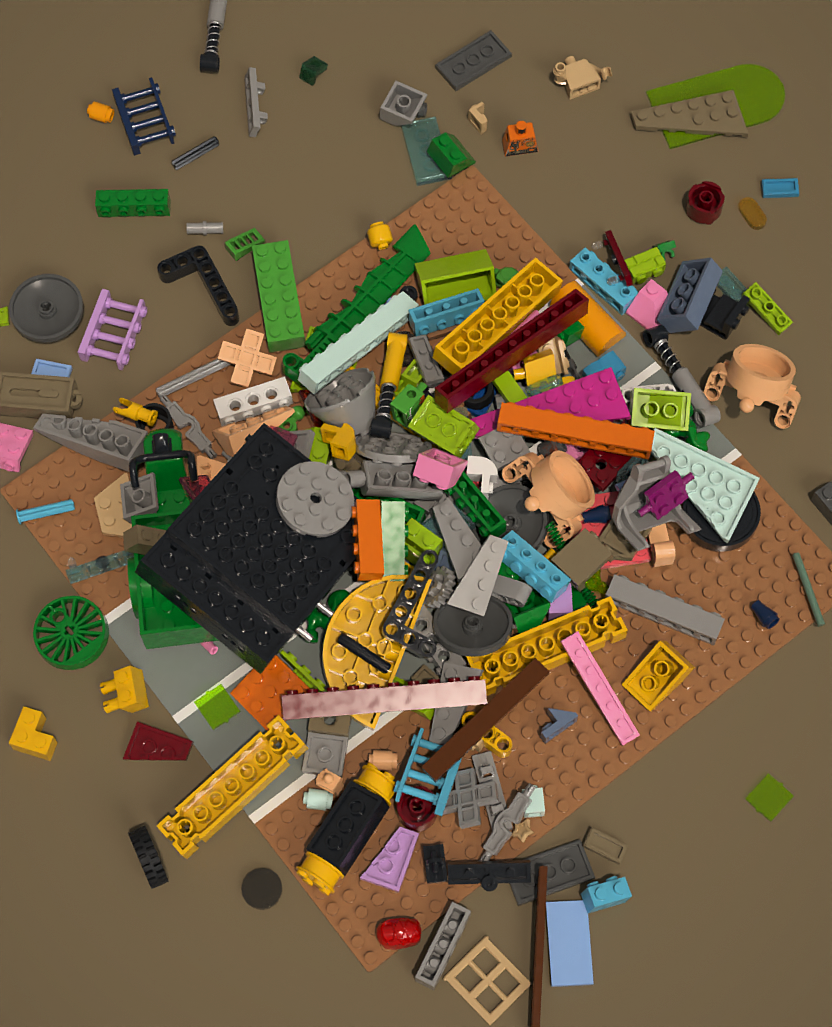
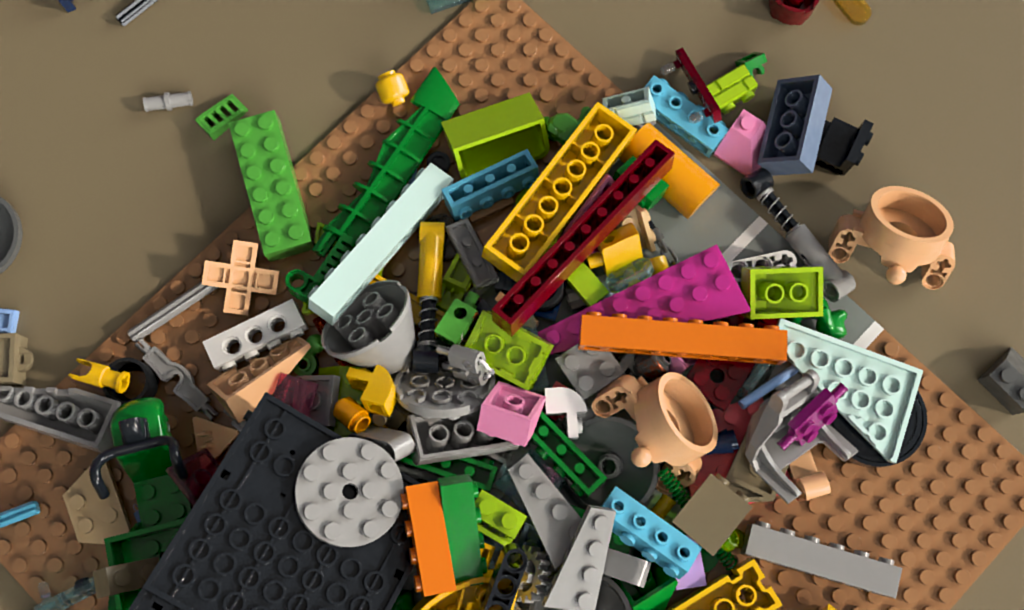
camera: 10 degrees left, 10 degrees up
(100, 317) = (42, 242): lavender fence -> none
(133, 202) = (70, 78): green brick -> none
(140, 499) = (122, 506): light grey slope -> none
(209, 279) = (181, 170): black beam -> none
(319, 454) = (351, 415): none -> light orange brick
(413, 430) = (466, 364): none -> light grey piece
(565, 266) = (633, 106): none -> light aqua brick
(607, 361) = (700, 237): dark azure brick -> none
(731, 285) = (843, 106): clear light blue plate -> none
(766, 616) = (948, 550): dark blue cone -> none
(775, 316) = (898, 139): lime tile -> none
(808, 589) = (996, 506): sand green bar -> none

